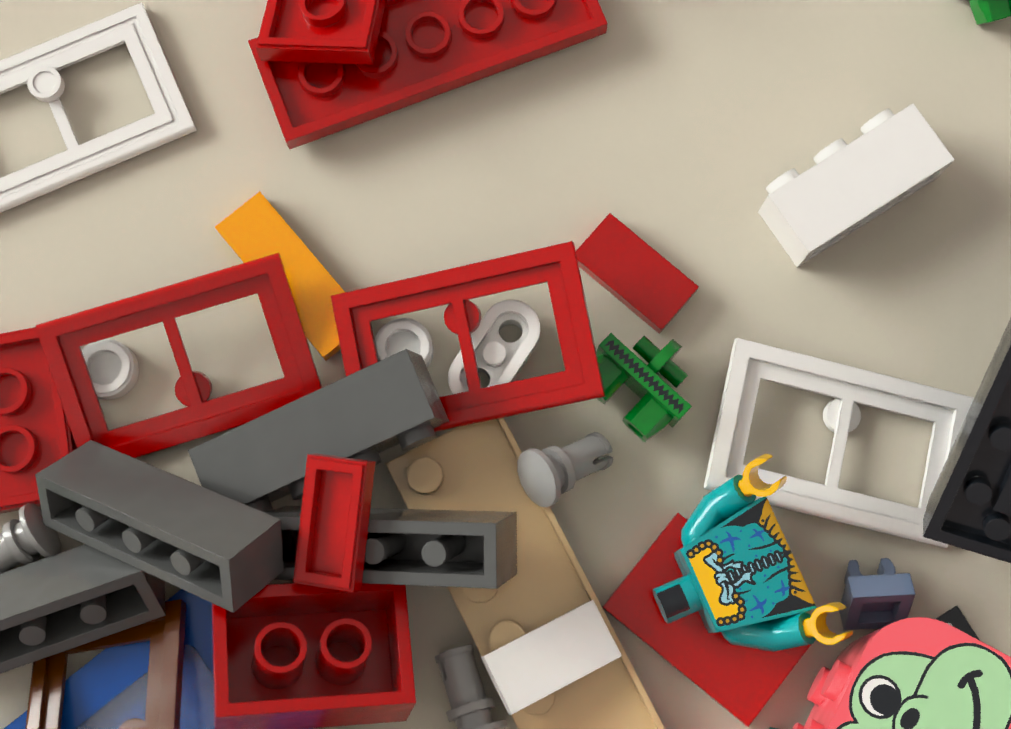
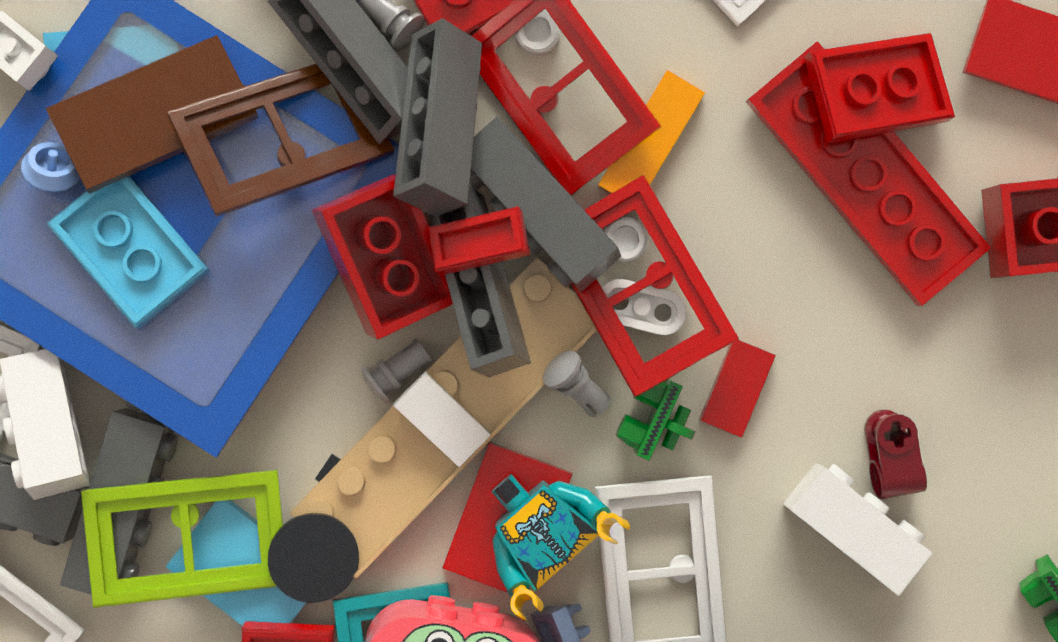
camera: 70 degrees right, 10 degrees up
(781, 114) = (897, 462): none -> dark red piece

